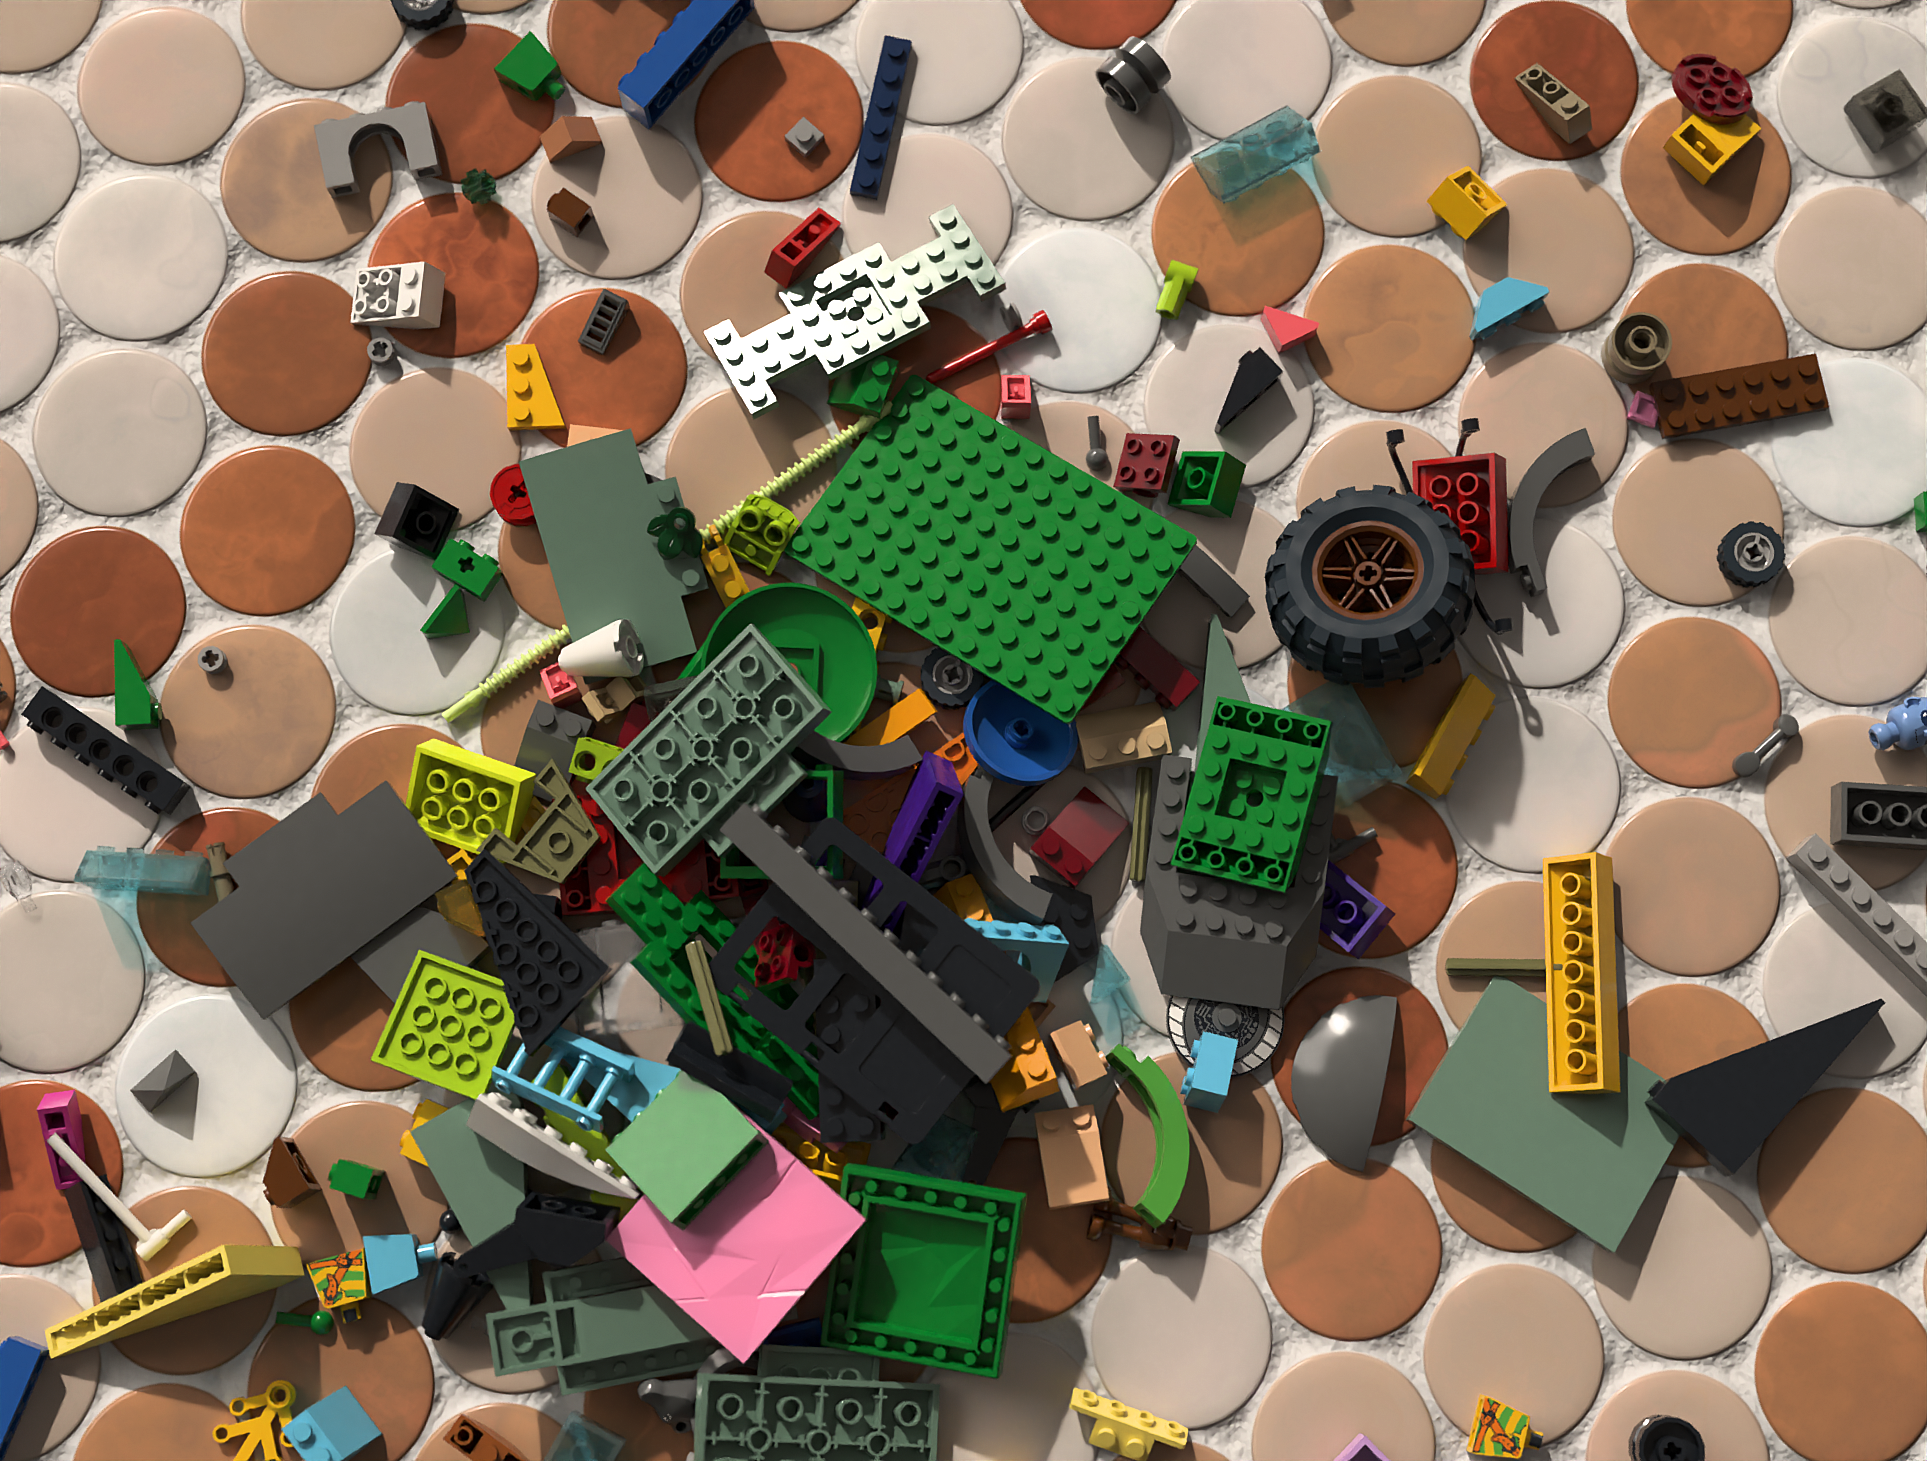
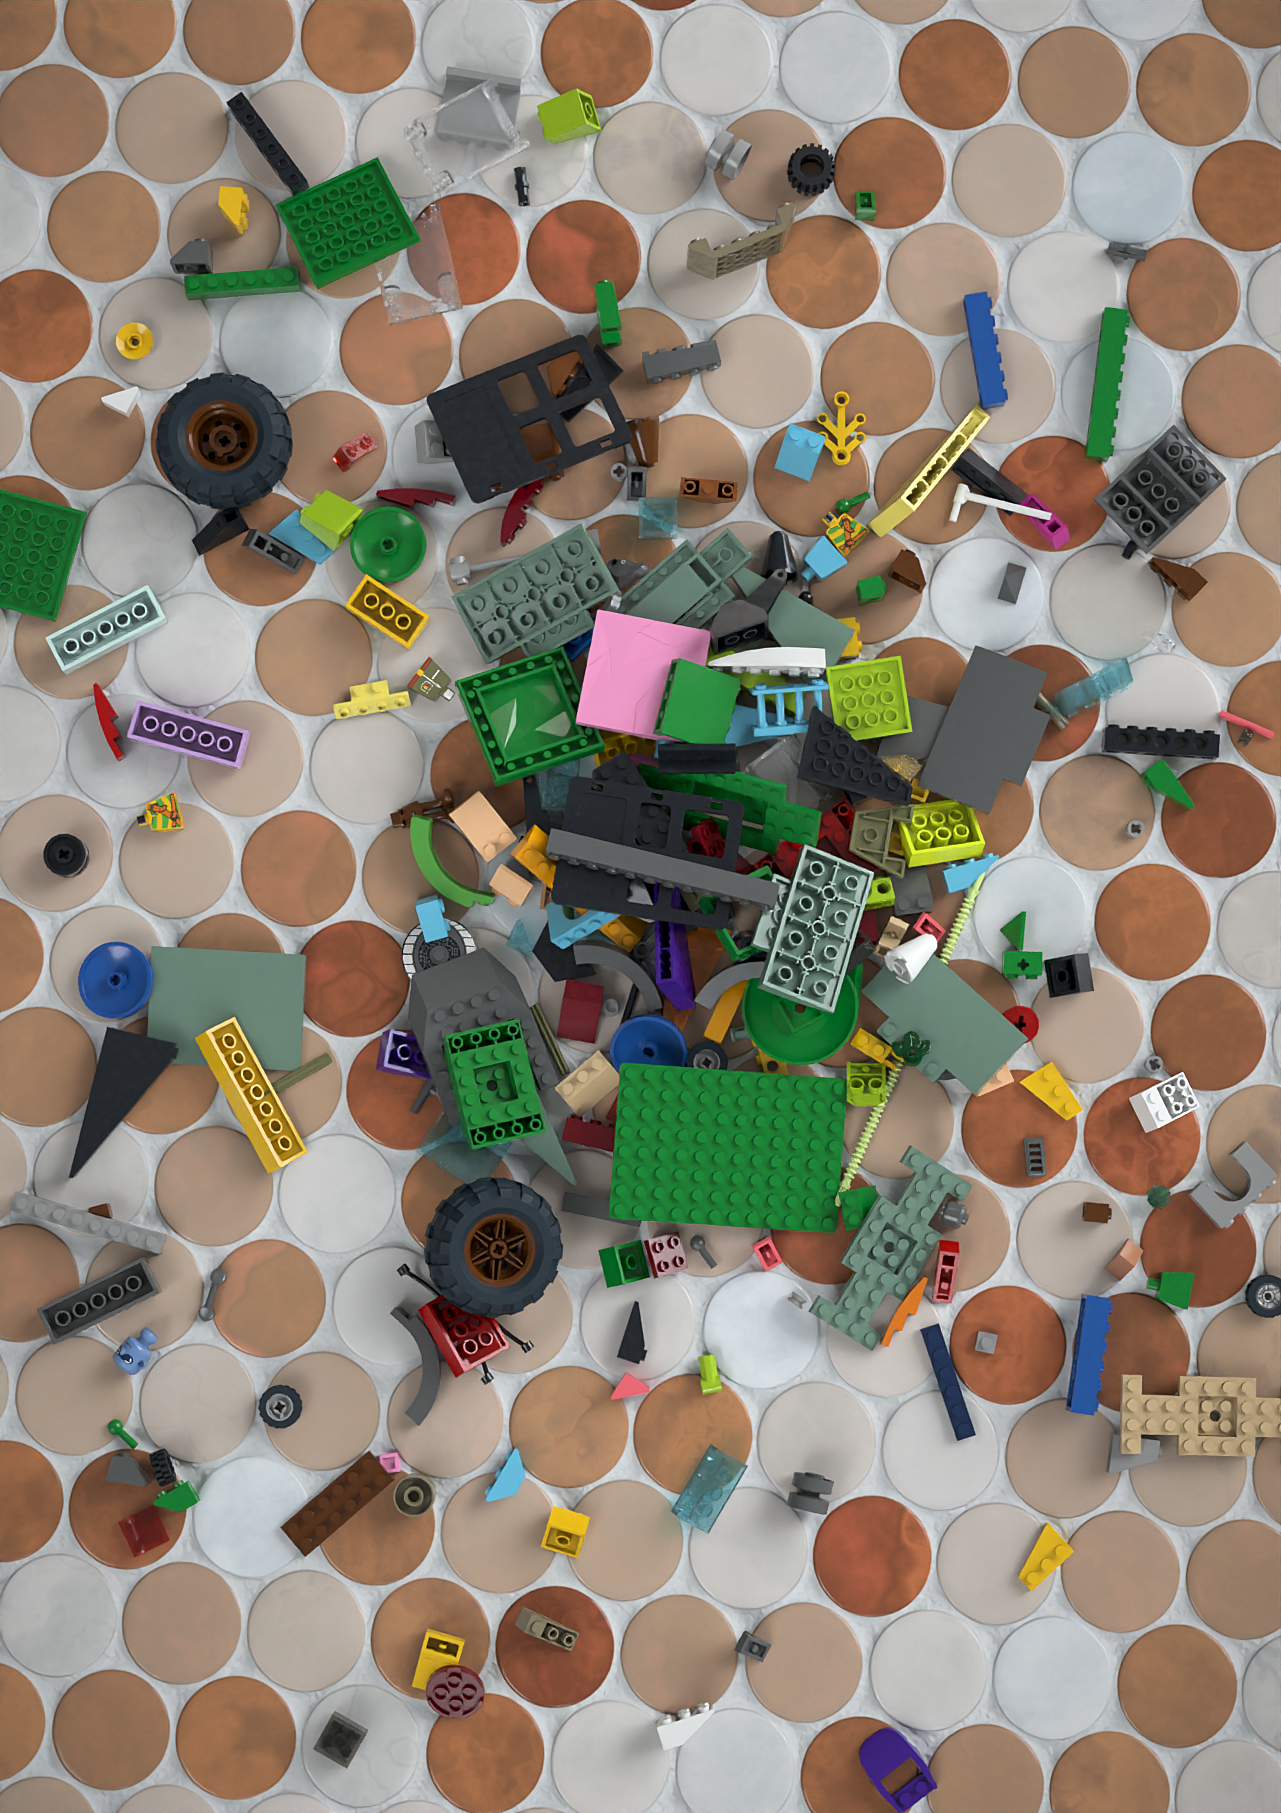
camera: 150 degrees right, 5 degrees up
(469, 724) = (961, 877): none -> medium azure slope
(709, 998) = (739, 798): olive axle -> none
(749, 308) = (954, 1214): none -> dark grey head
(890, 227) = (908, 1305): none -> orange slope
(1028, 1402) = (431, 682): none -> olive torso
(1038, 324) = (779, 1304): red piece -> none
(1342, 1076) = (356, 962): dark grey brick -> none
(1451, 738) = (397, 1191): yellow slope -> none
(1686, 1234) = (115, 980): none -> blue dish
(1859, 936) = (103, 1210): none -> reddish brown slope

